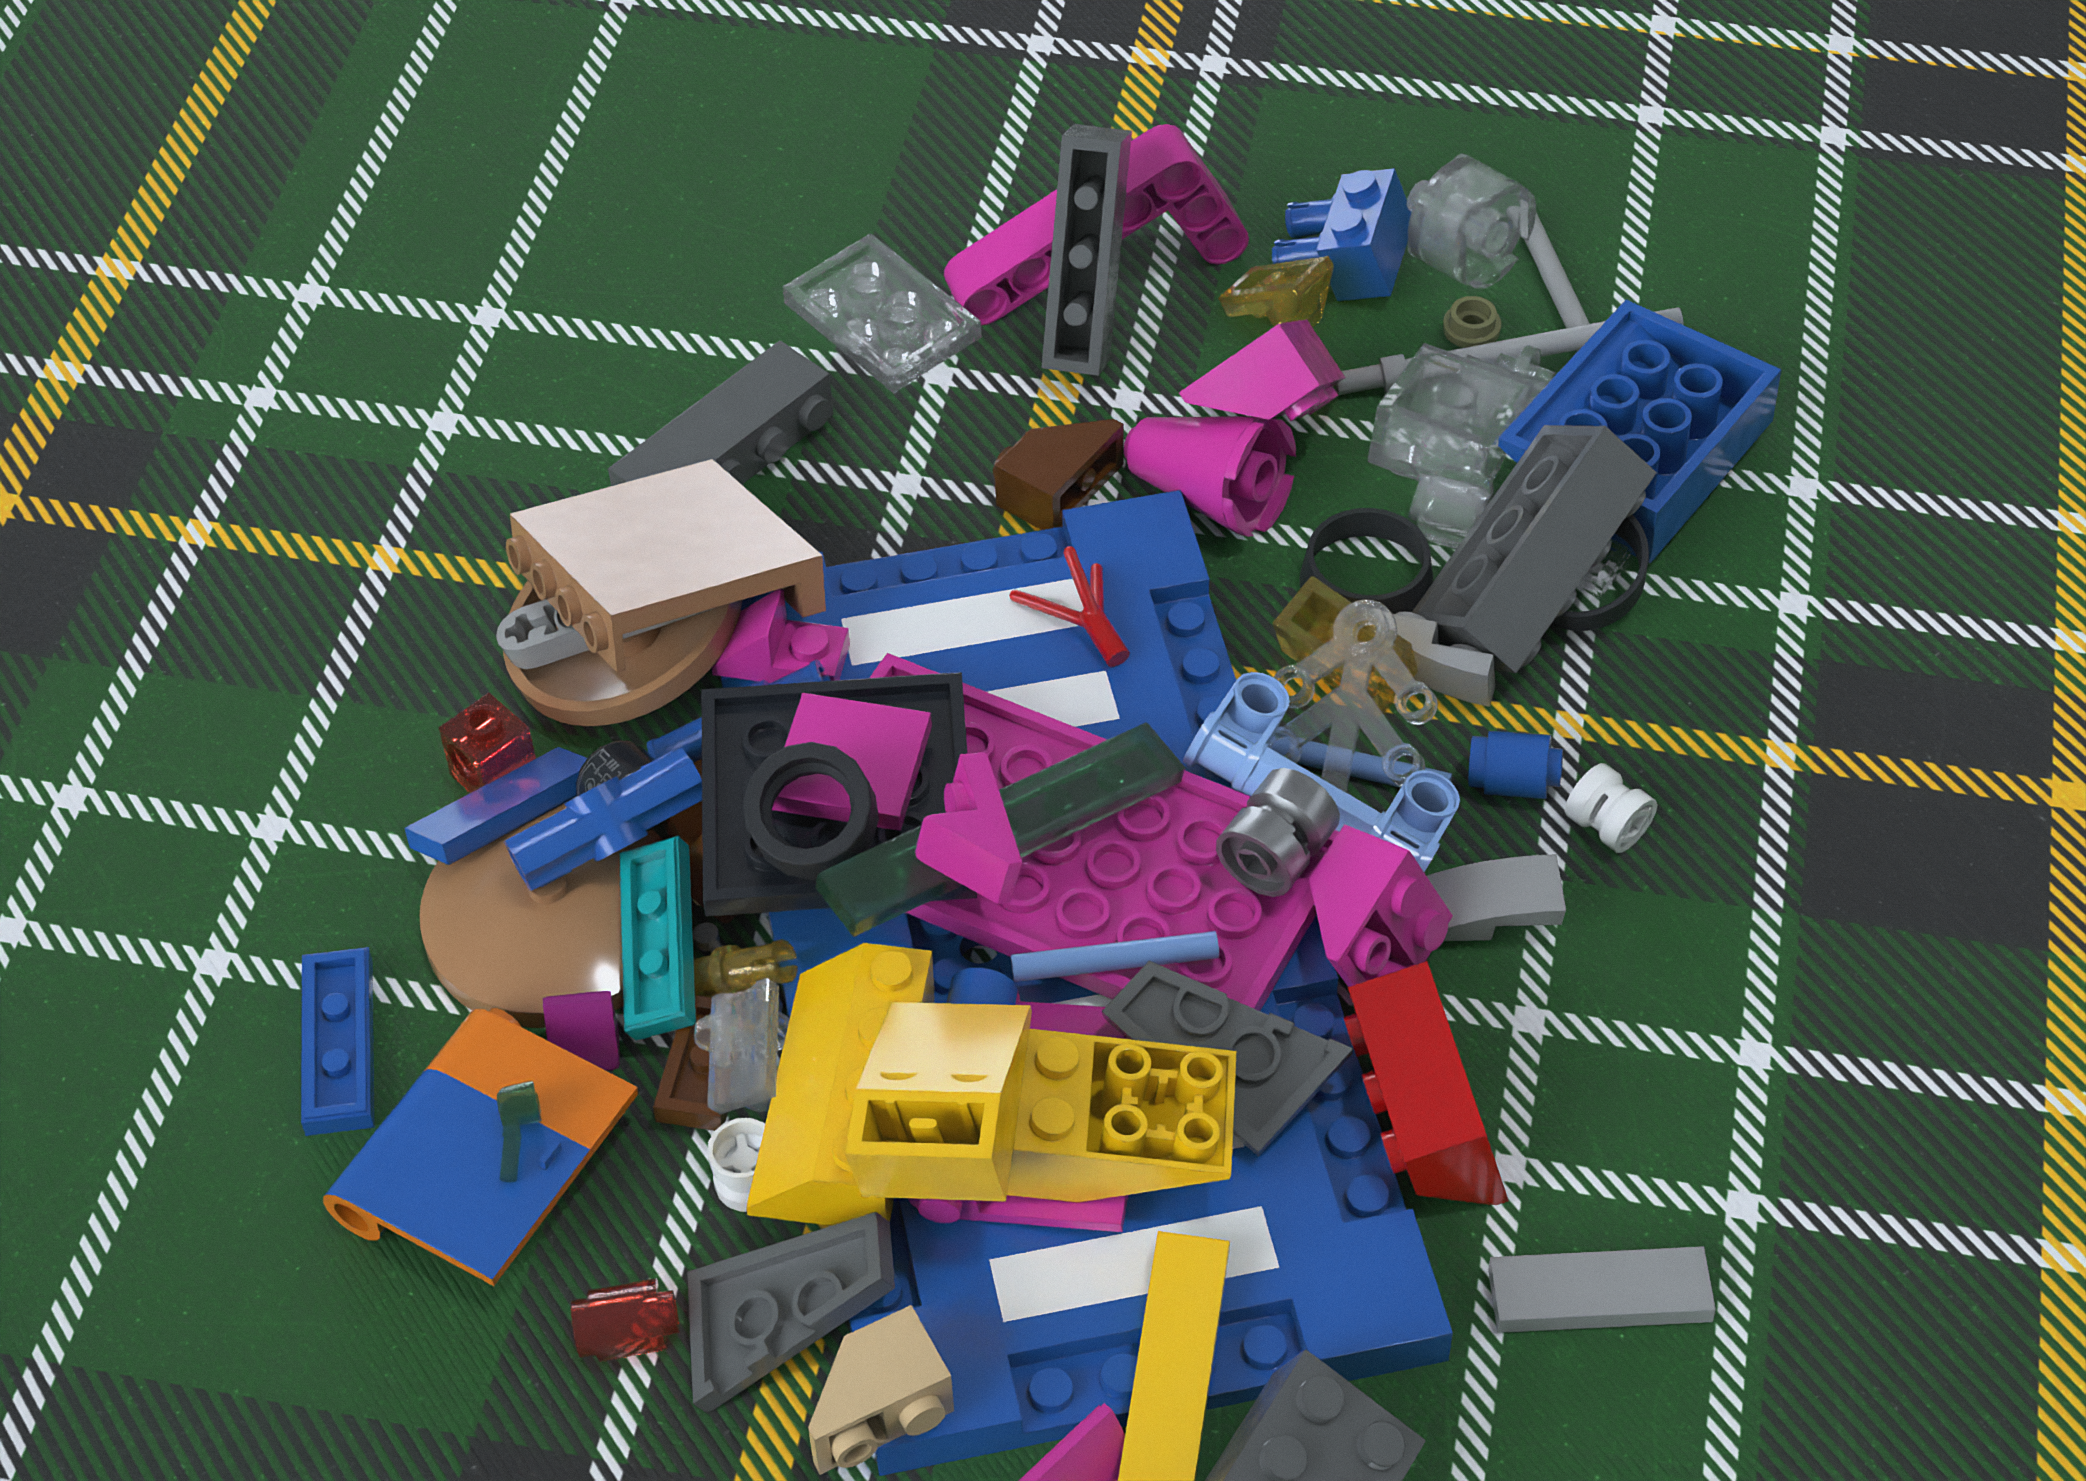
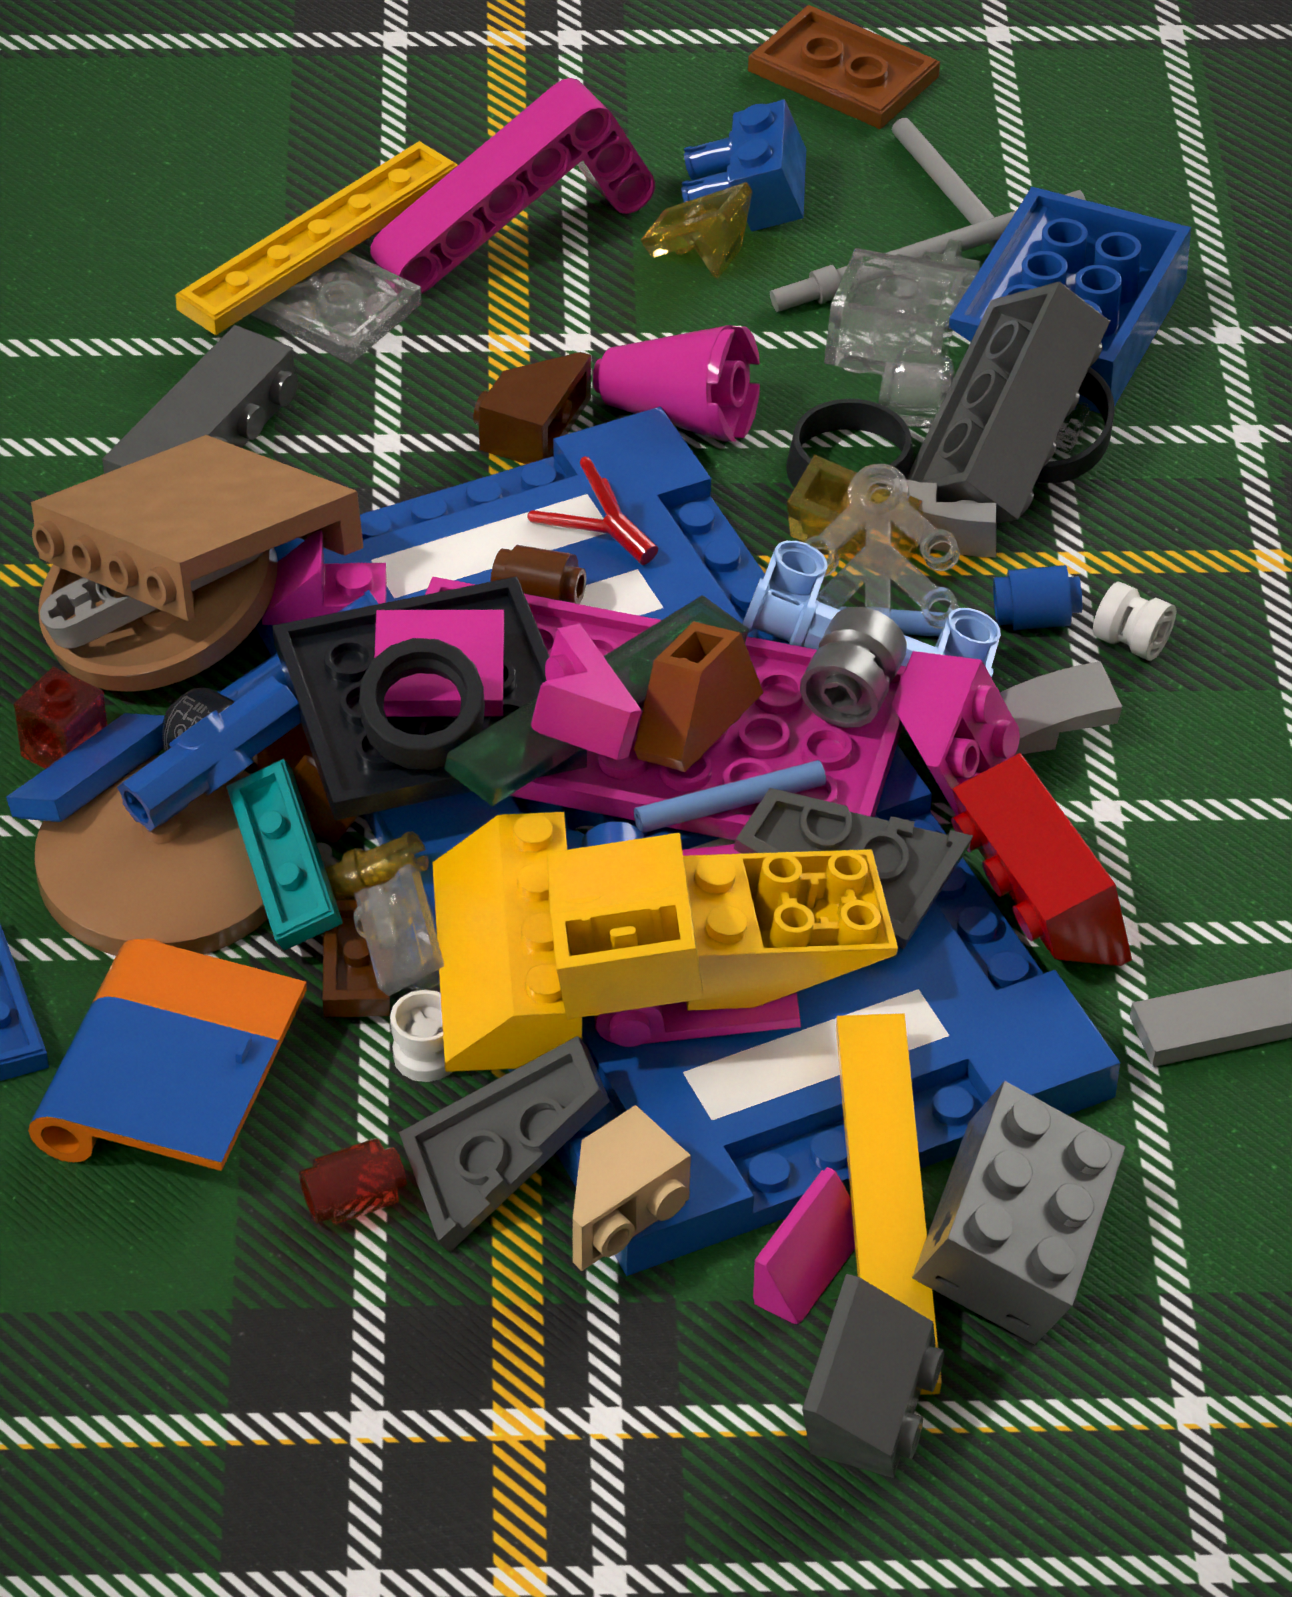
camera: 15 degrees left, 5 degrees down
(517, 1106) = (204, 1010): hand -> none
(584, 1026) = (232, 937): magenta slope -> none
(885, 255) = (312, 239): none -> yellow tile
(996, 667) = (542, 572): none -> reddish brown brick
(1086, 248) = (520, 200): dark grey brick -> none
(1102, 840) = (695, 695): none -> dark orange slope
(1272, 376) = (723, 291): dark pink slope -> none
(1469, 221) = (863, 140): clear brick -> none
(1471, 322) = (886, 230): olive plate -> none
(1476, 117) = (844, 66): none -> dark orange tile

